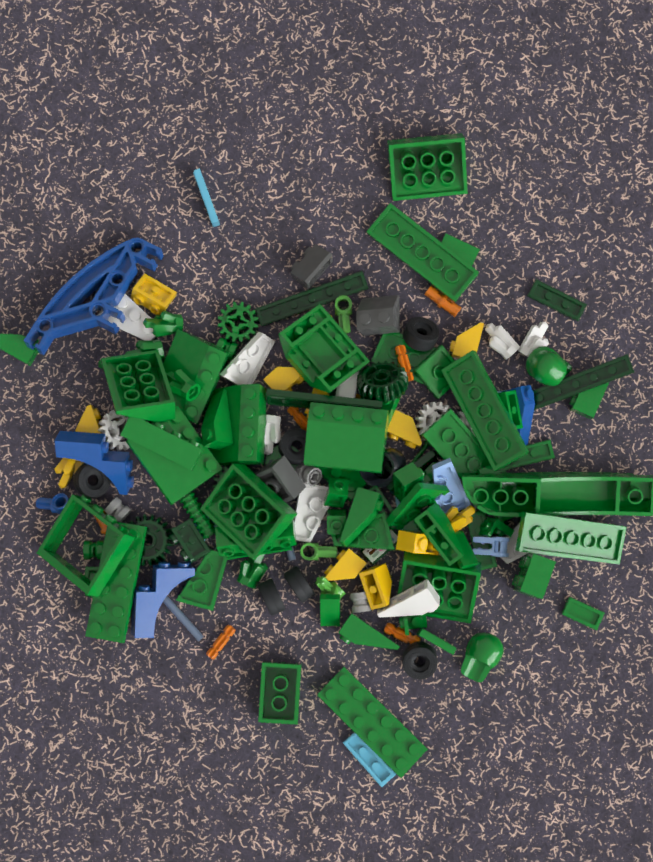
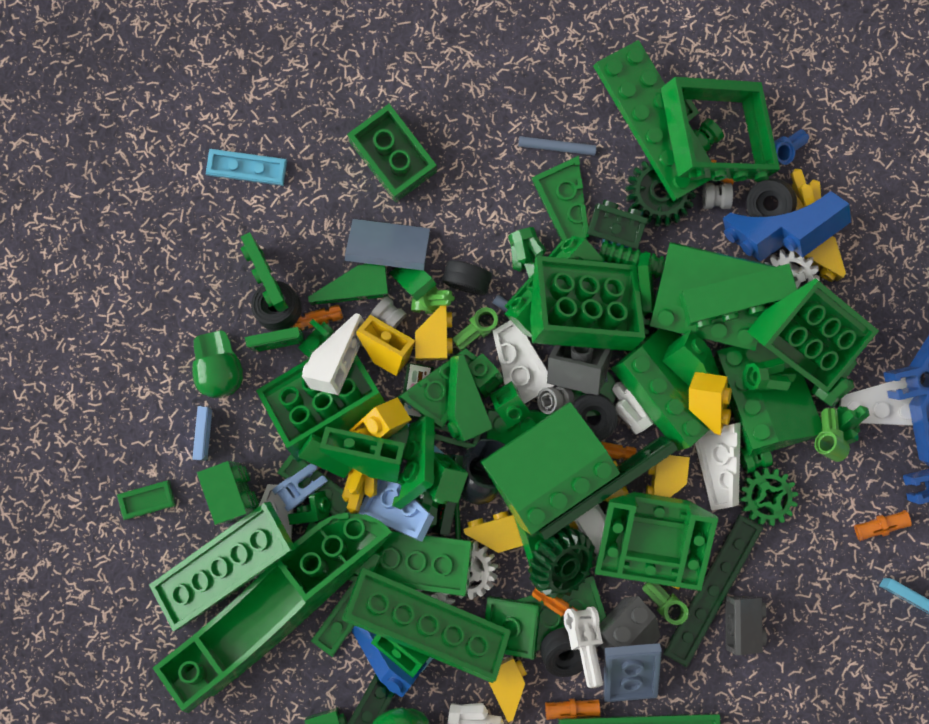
camera: 135 degrees right, 0 degrees up
(148, 600) = (606, 132): arch -> none
(152, 294) = (883, 448): yellow bracket -> none
(176, 324) = (830, 436): none -> bright green axle
(189, 254) = (882, 525): none -> orange pin
(203, 494) = (646, 282): none -> green tile
(221, 641) = (496, 155): orange axle -> none
(227, 399) = (709, 400): none -> yellow slope
(271, 597) = (484, 240): black tyre -> none
(327, 642) = (387, 244): none -> sand blue tile
(372, 722) = (273, 204): green plate -> none
(395, 292) = (631, 672): none -> sand blue tile
(404, 332) = (585, 636): none -> white connector
(413, 684) = (262, 272): none -> green wing
(520, 623) = (202, 433): none -> light blue tile

